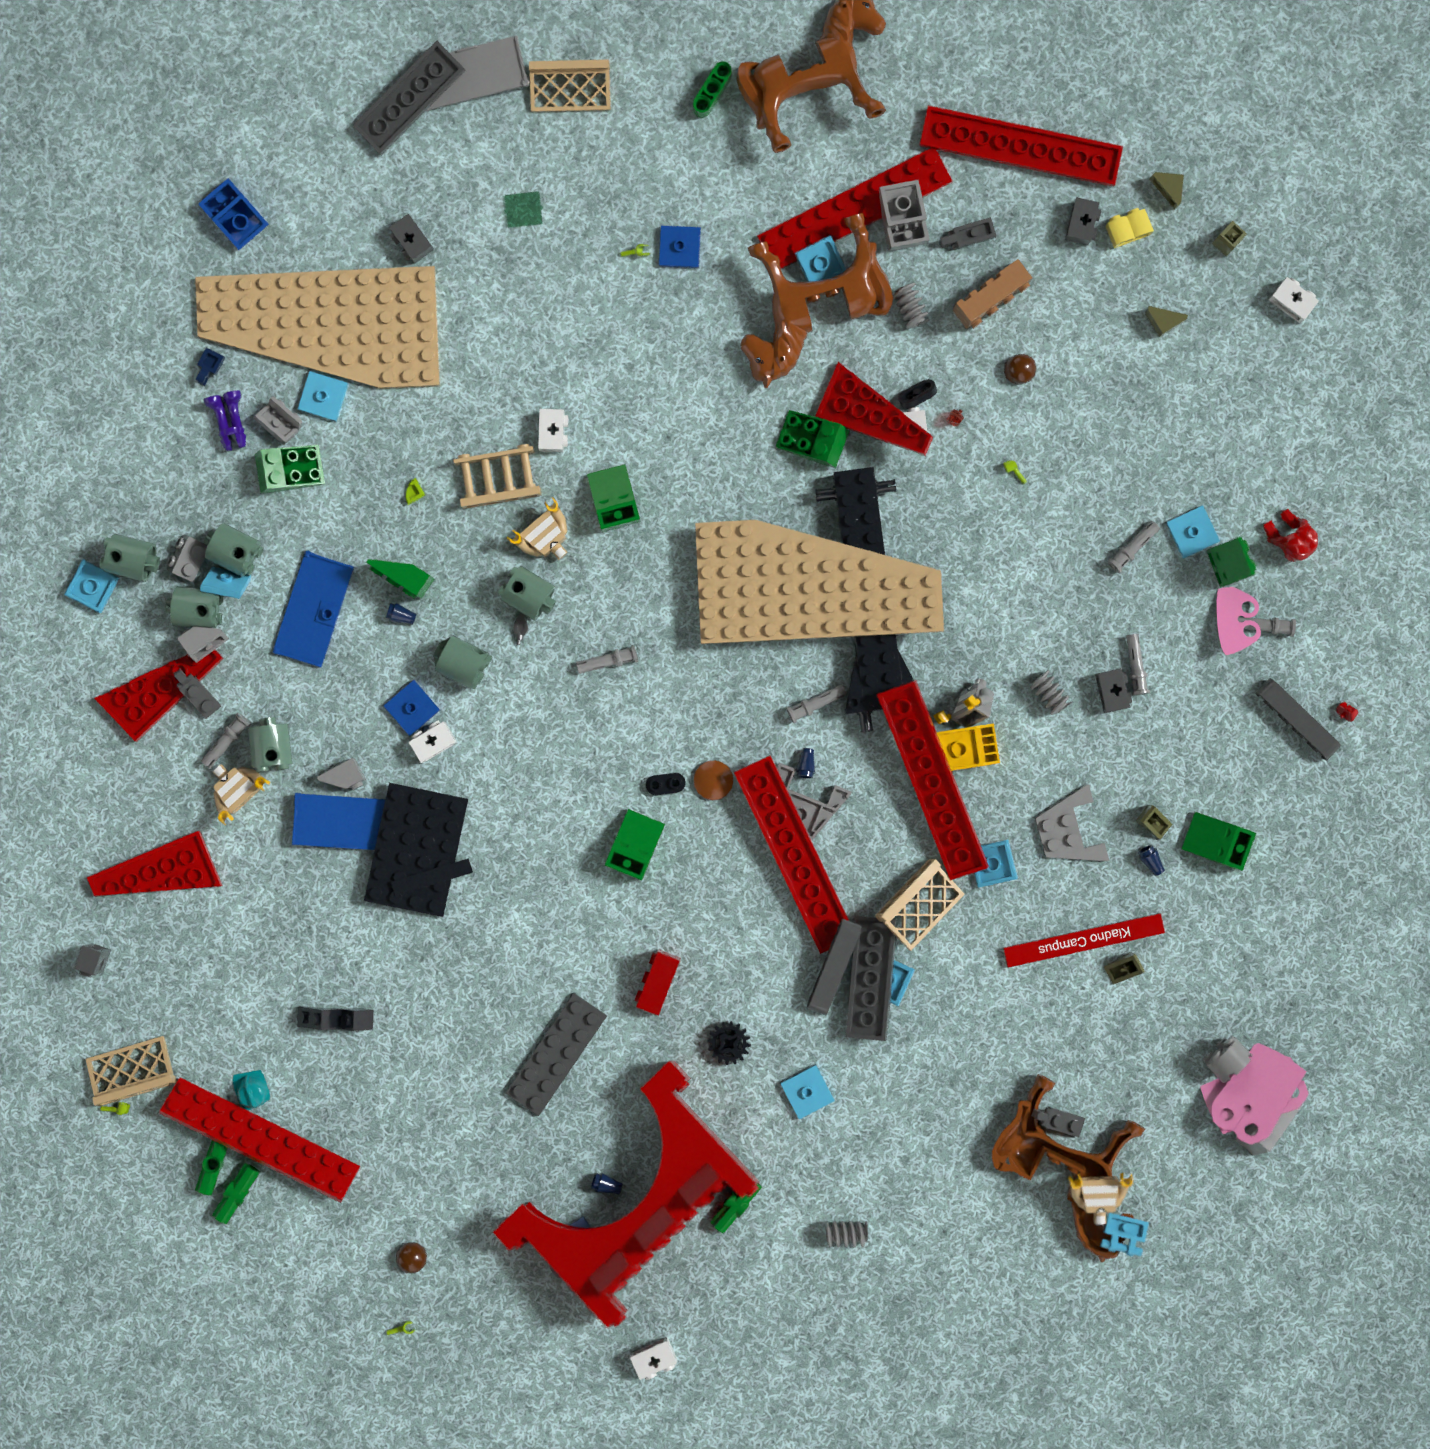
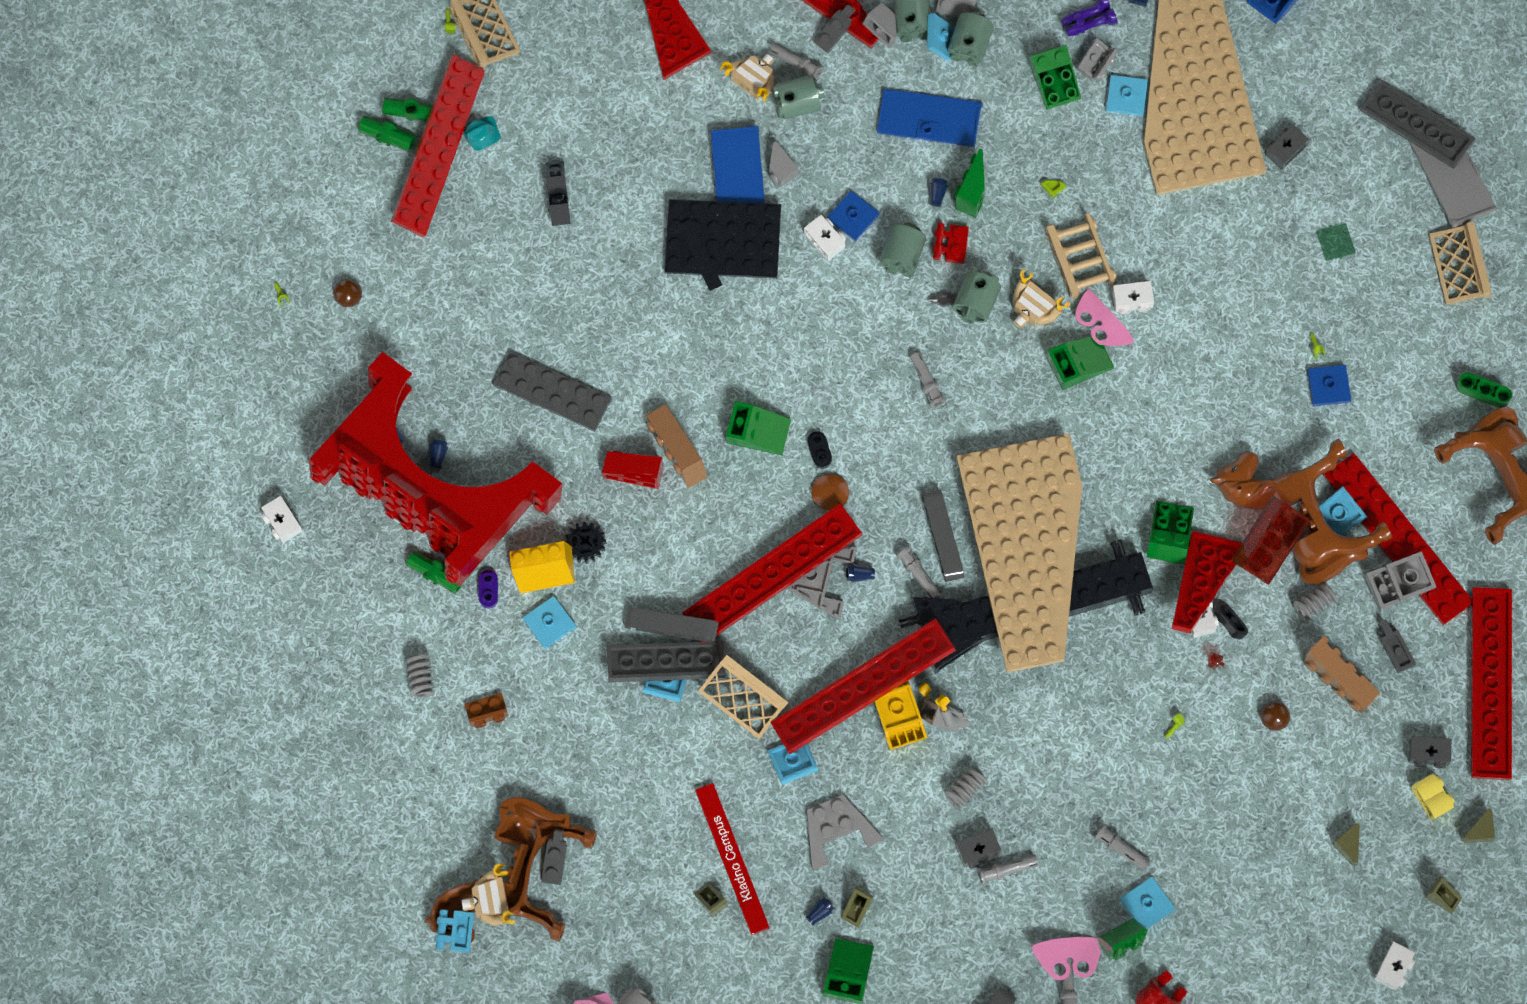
camera: 80 degrees right, 15 degrees down
(462, 604) = (957, 243): none -> red plate
(584, 455) = (1116, 332): none -> bright pink piece
(639, 933) = (676, 445): none -> medium nougat wedge
(751, 1091) = (543, 566): none -> yellow slope
(762, 1148) = (488, 588): none -> dark purple plate
(779, 671) = (943, 535): none -> dark grey beam
(844, 337) = (1270, 540): none -> clear red brick
(891, 1169) = (486, 710): none -> dark orange bracket

